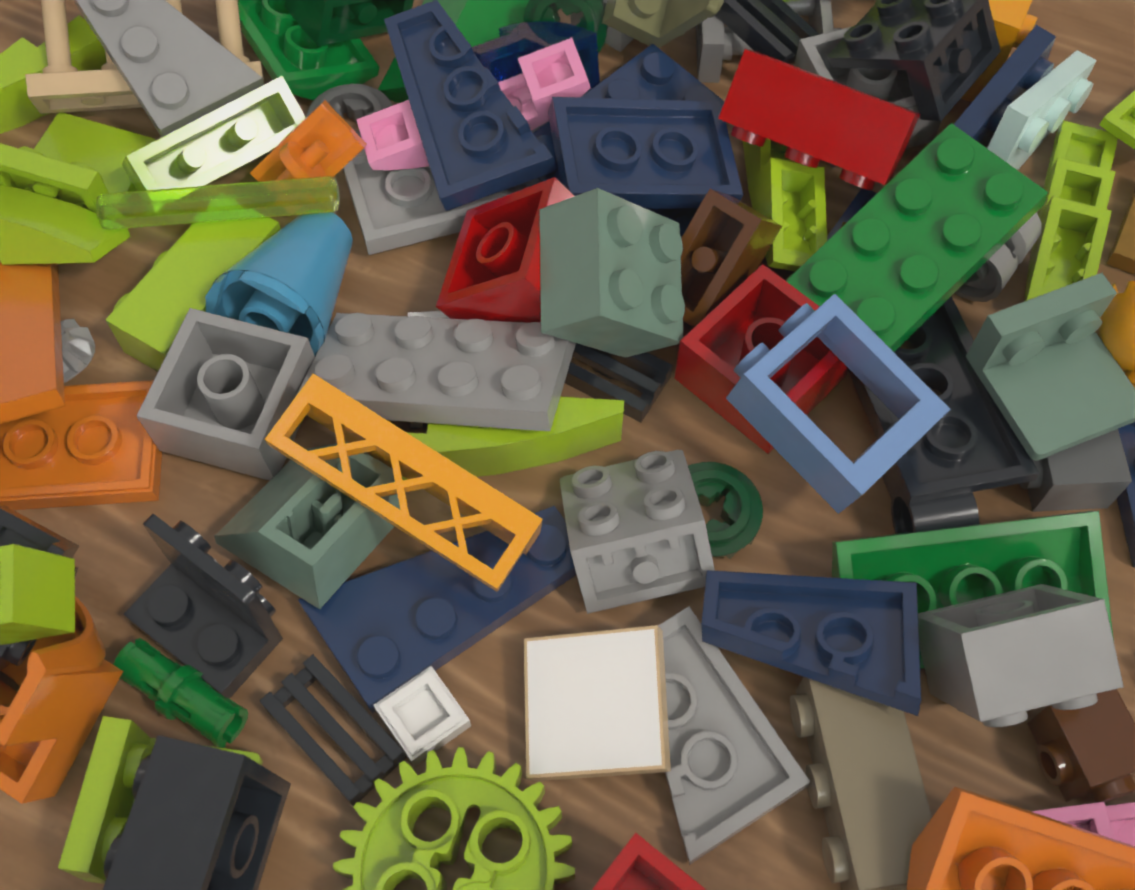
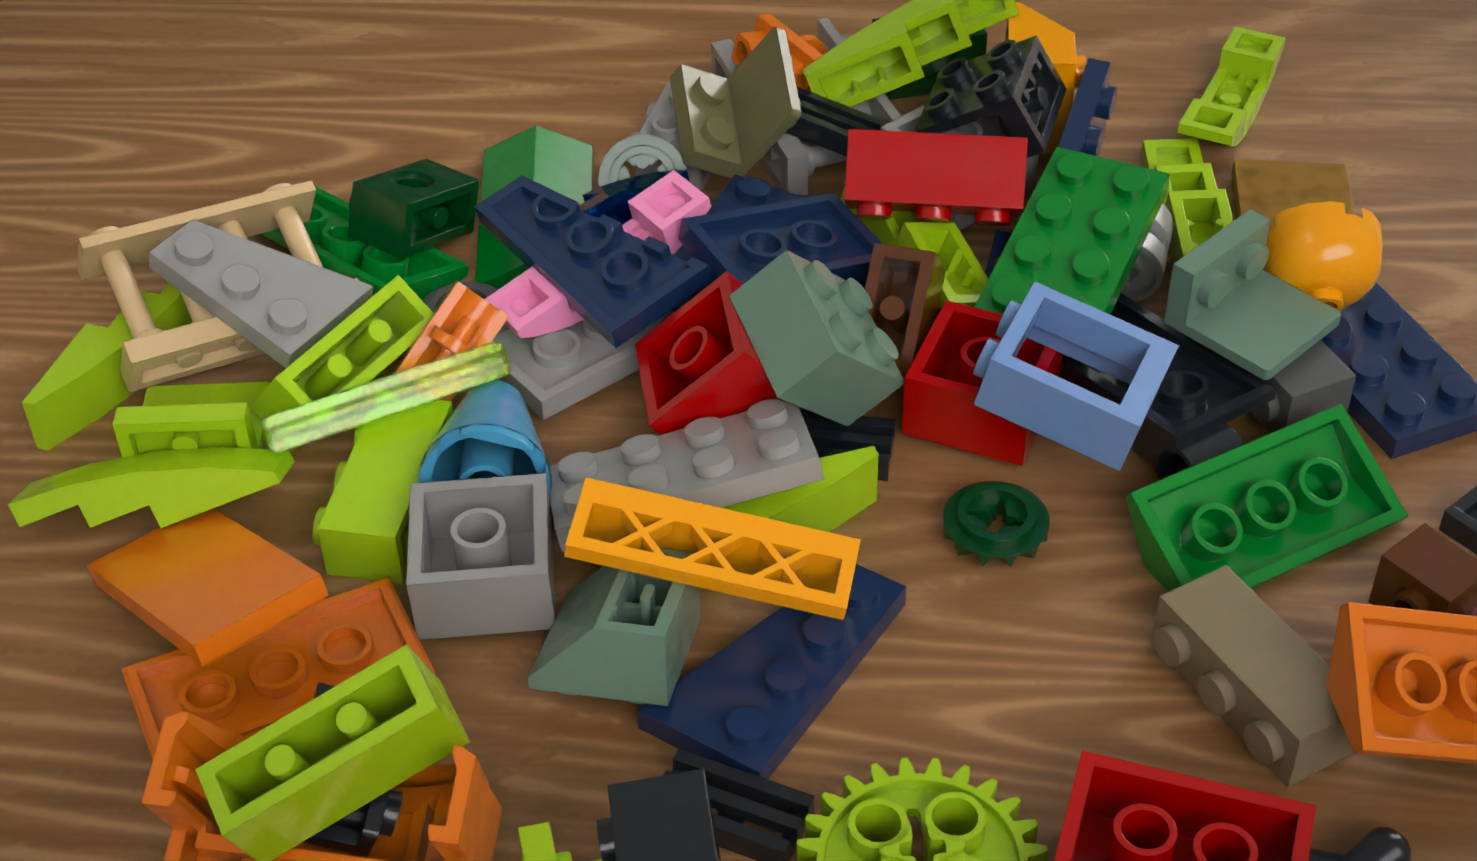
camera: 20 degrees left, 20 degrees down
(181, 693) = (570, 821): green pin -> none
(205, 610) = (554, 729): black bracket -> none
(422, 715) = (814, 763): white tile -> none
(596, 704) = (980, 693): white tile -> none
(635, 530) = (944, 552): light grey bracket -> none
(722, 747) = (1093, 684): light grey wing -> none
(822, 628) = (1153, 558): dark blue wing -> none
(1019, 653) = (1332, 521): light grey brick -> none
(1042, 109) = (1125, 123): light aqua wing -> none

